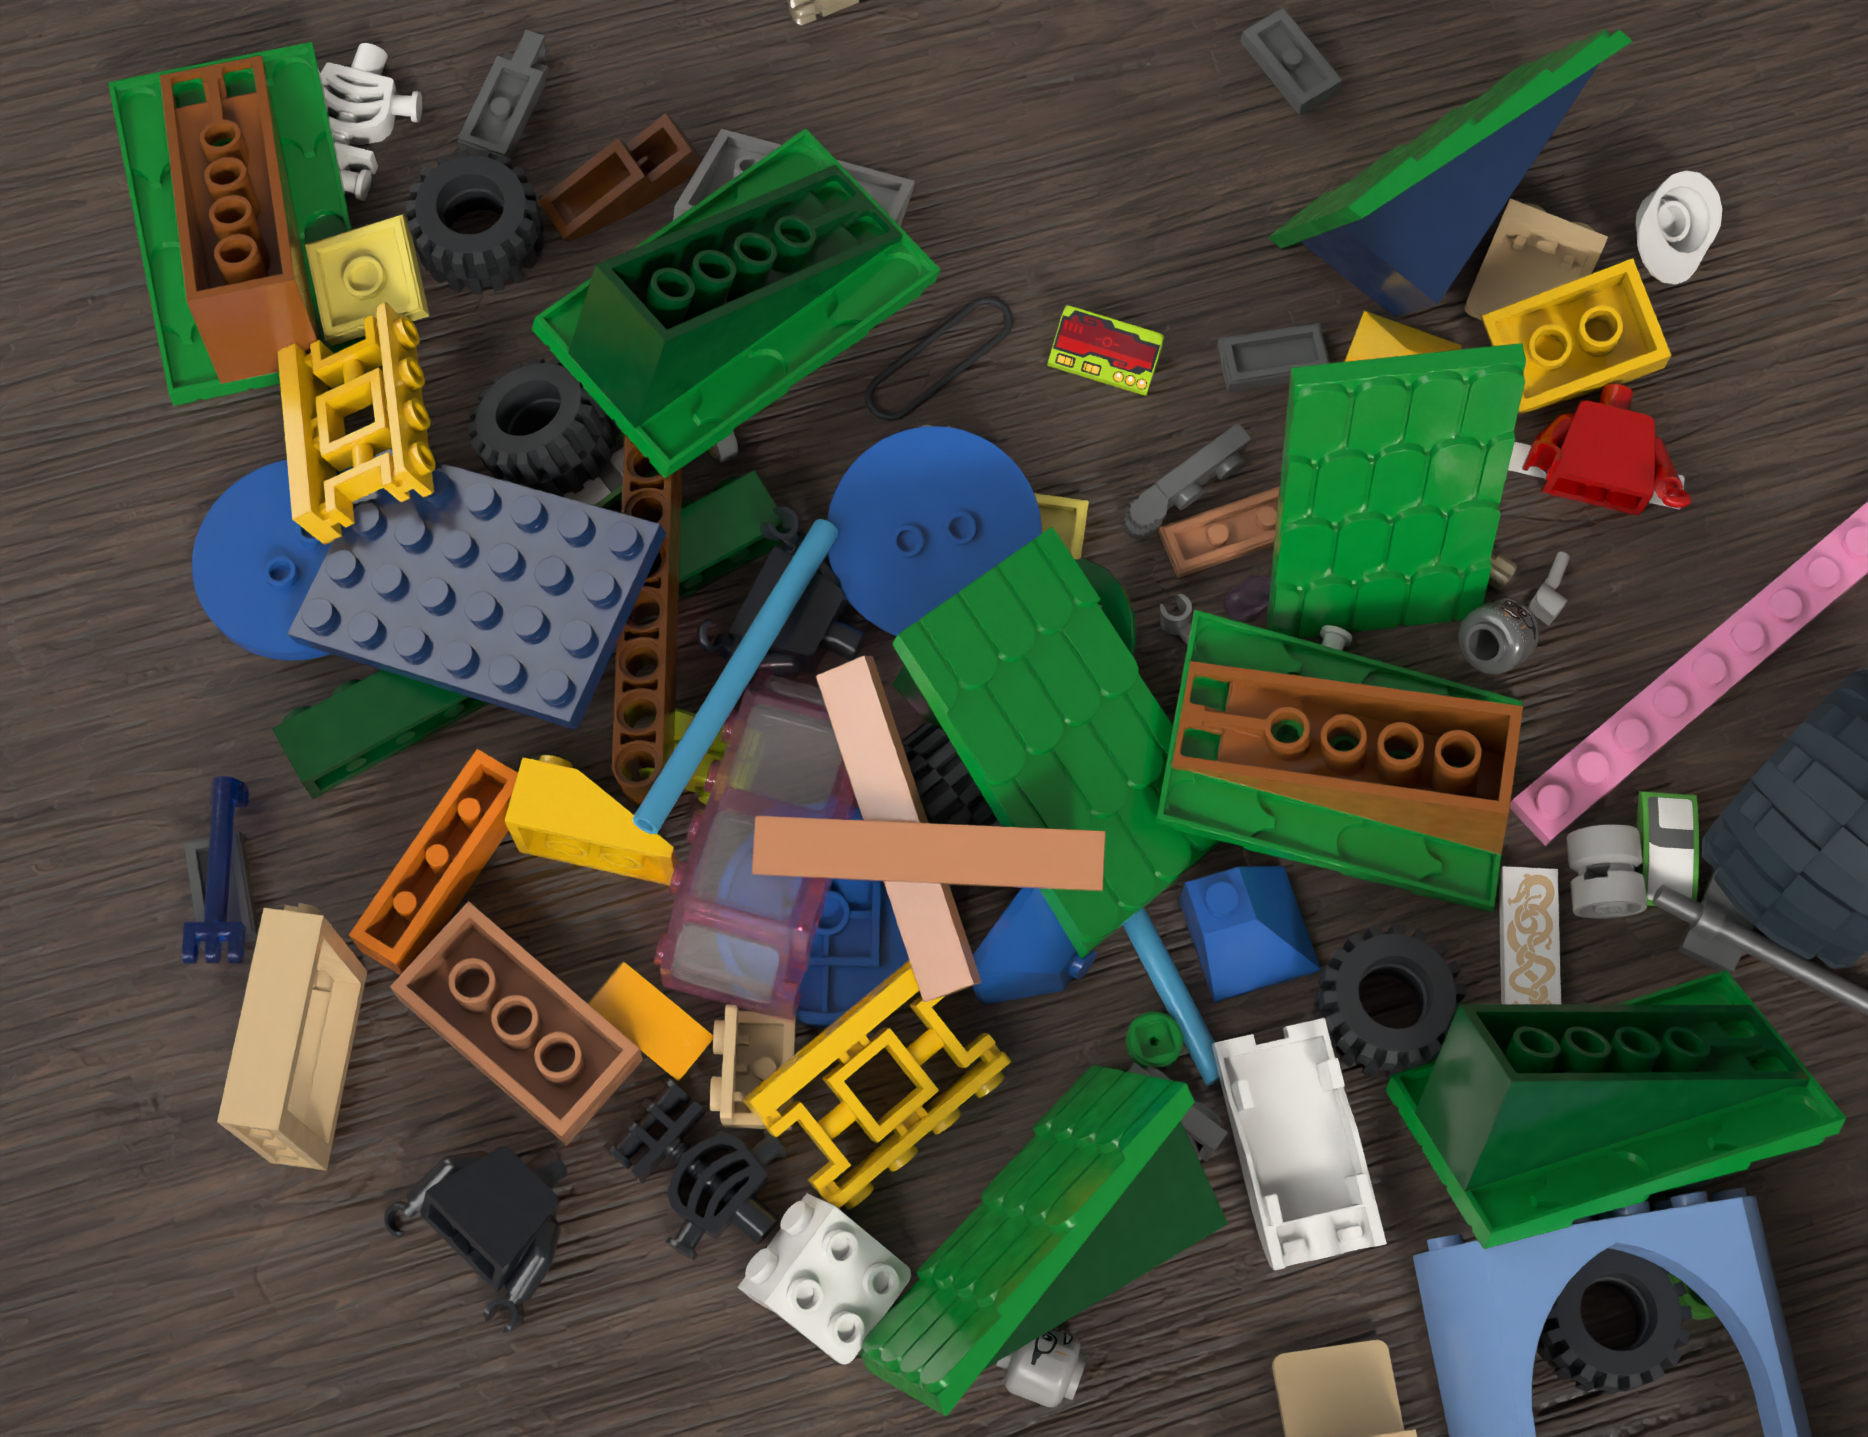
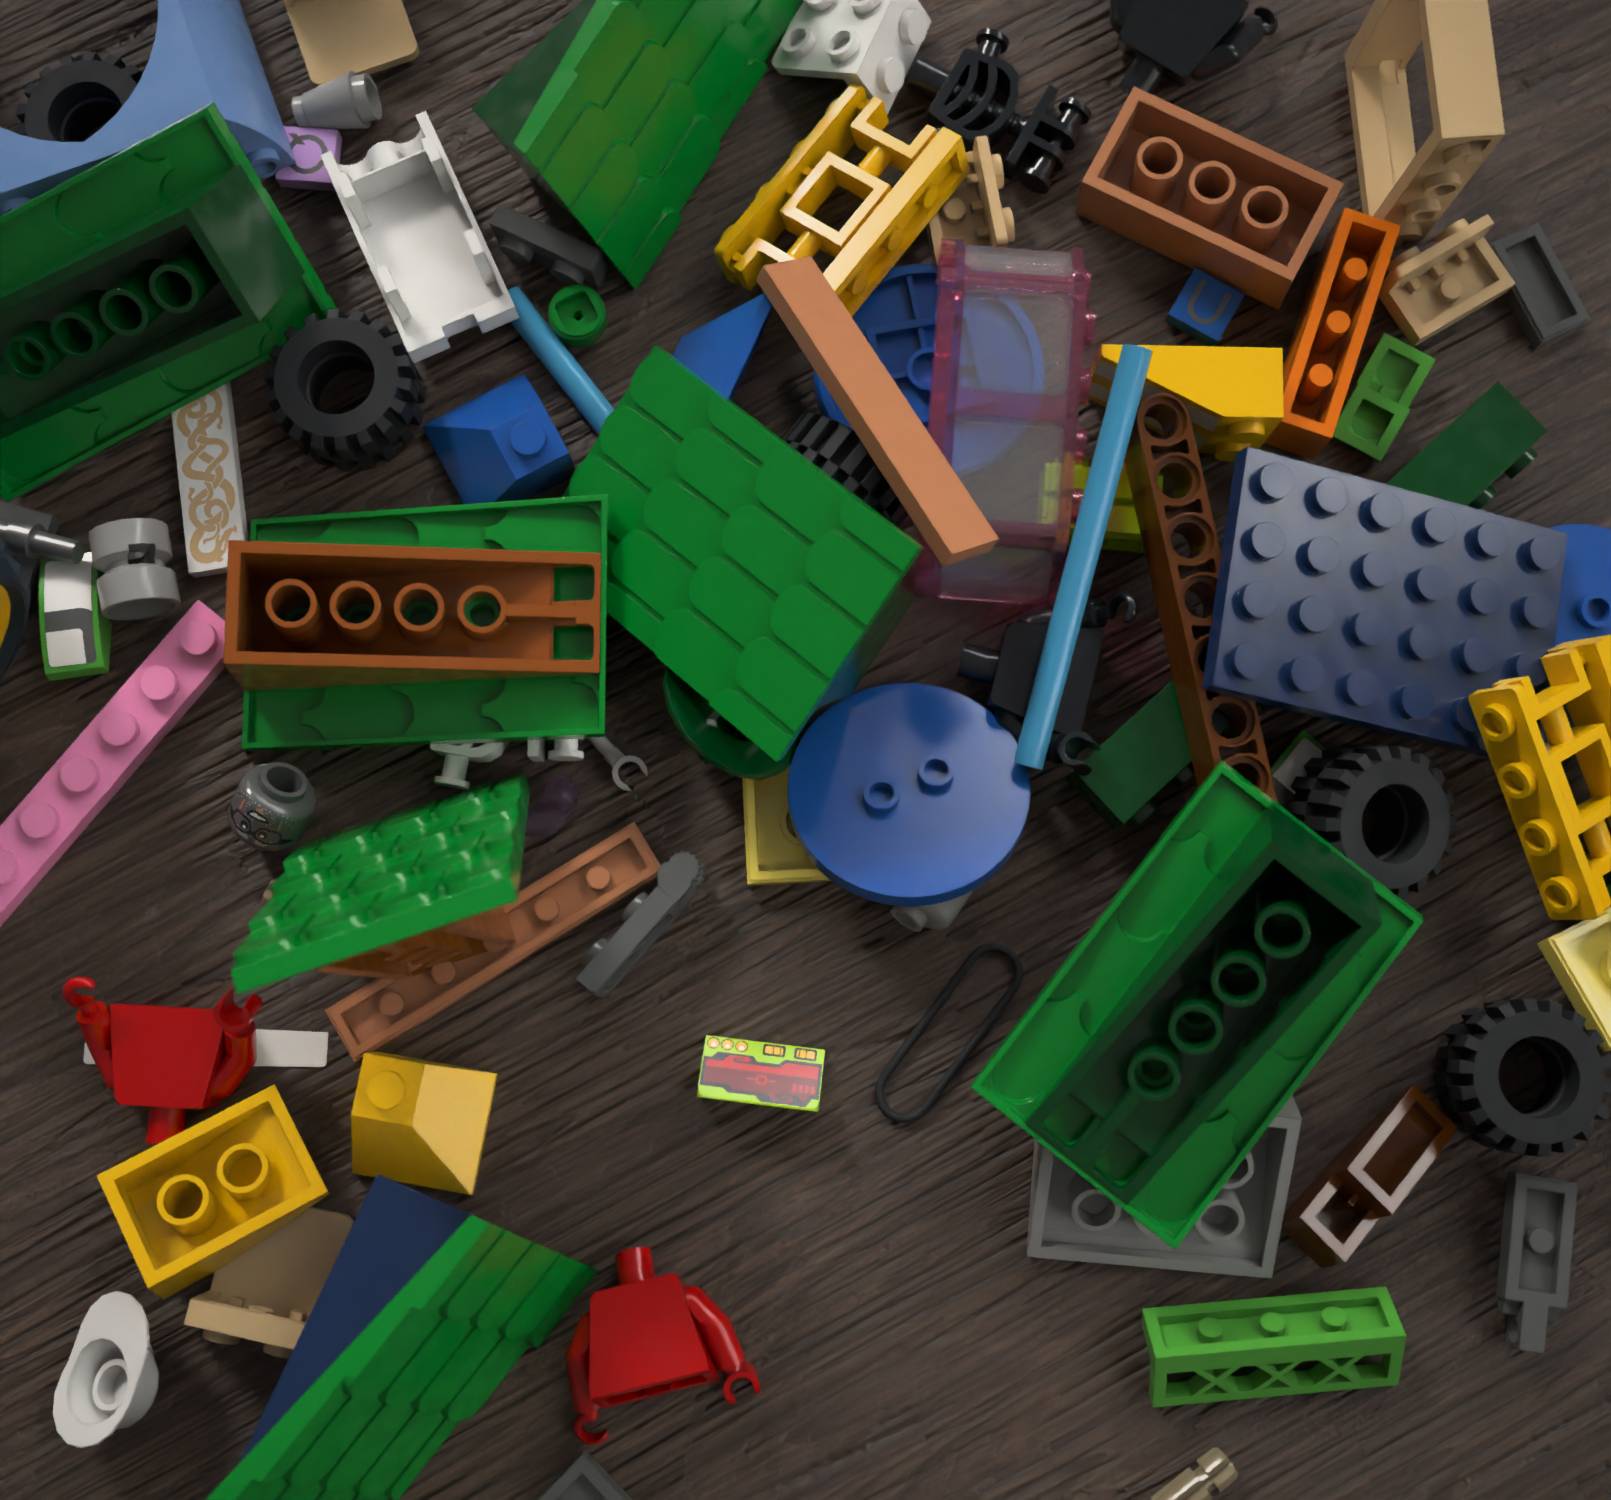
camera: 170 degrees right, 10 degrees up
(224, 797) = (1531, 232): clear blue hinge -> none
(331, 884) = (1445, 281): none -> tan bracket
(397, 818) = (1382, 396): none -> bright green slope
(546, 931) = (1204, 307): none -> blue tile
(651, 1021) = (1060, 222): light orange slope -> none
(735, 81) = (1275, 1337): none -> bright green fence
(929, 853) = (834, 366): nougat tile -> none
(1233, 168) = (648, 1342): none -> red torso
(1267, 356) = (567, 1111): dark grey tile -> none
(1361, 1312) = (341, 103): none -> light grey cone
(1393, 1268) = (307, 148): none -> lavender tile
(1547, 601) = (227, 871): light grey hand -> none

